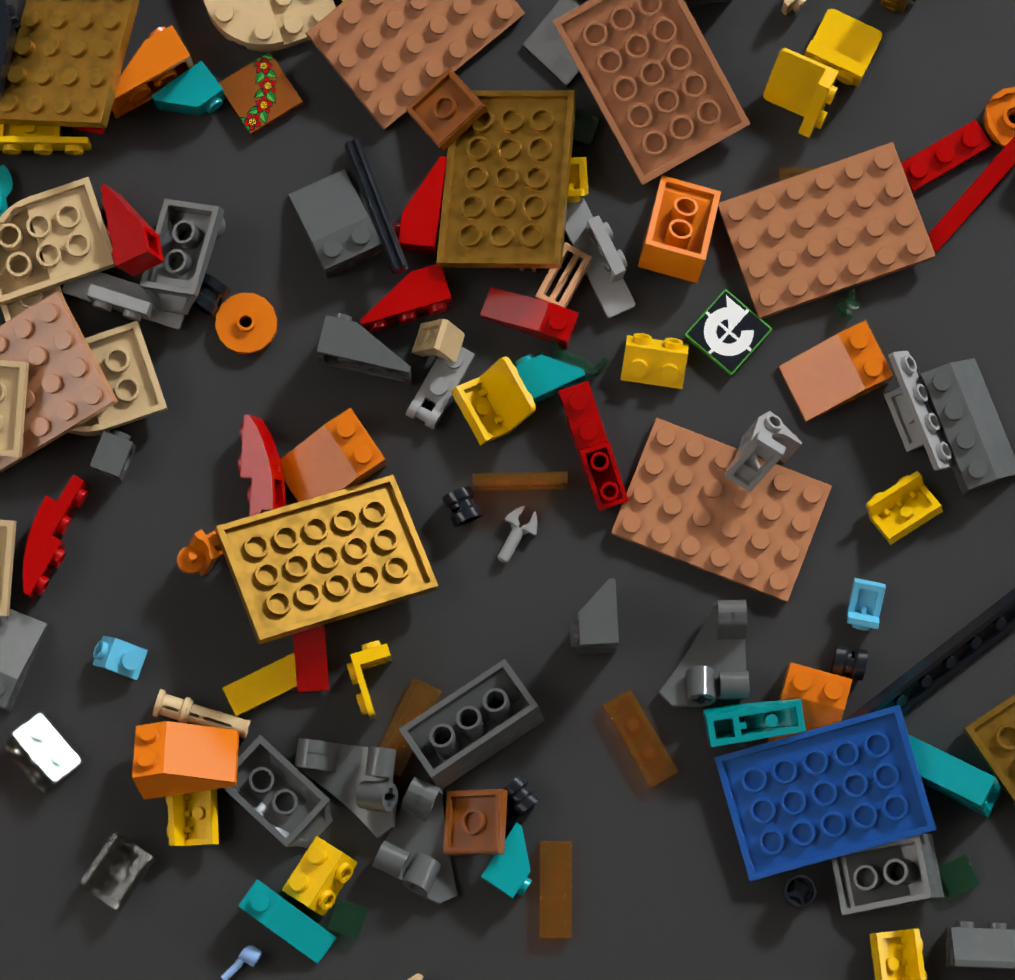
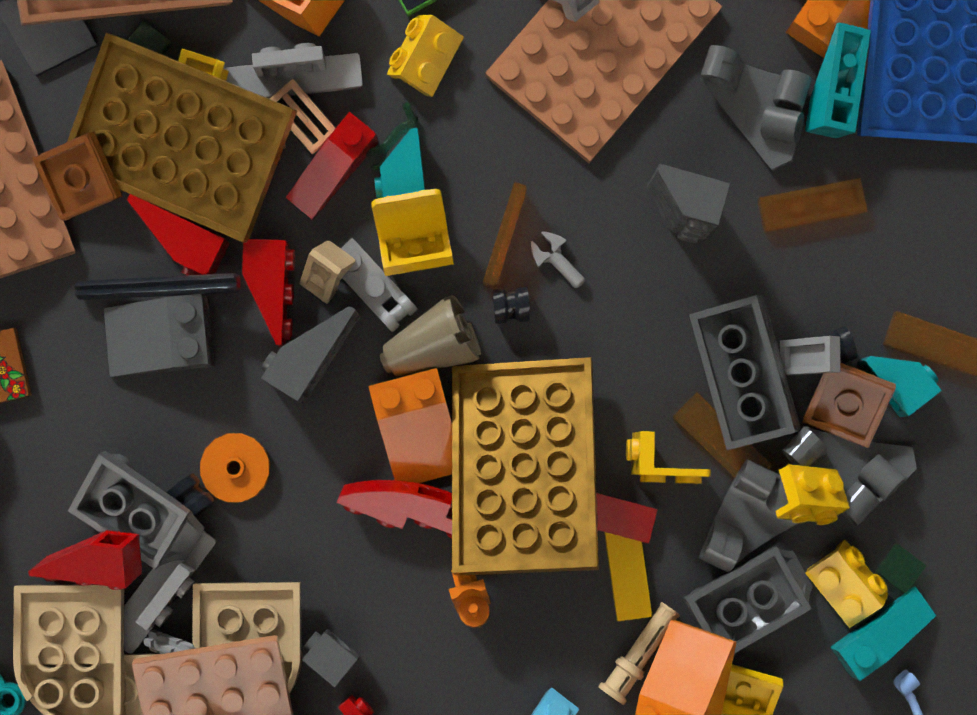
camera: 75 degrees left, 5 degrees up
(80, 312) = (165, 643): none -> light grey axle
(383, 812) = (812, 494): none -> yellow bracket
(408, 451) = (432, 341): none -> dark tan cone
(504, 774) = (811, 355): none -> light grey tile
(592, 445) = (494, 148): red slope -> none

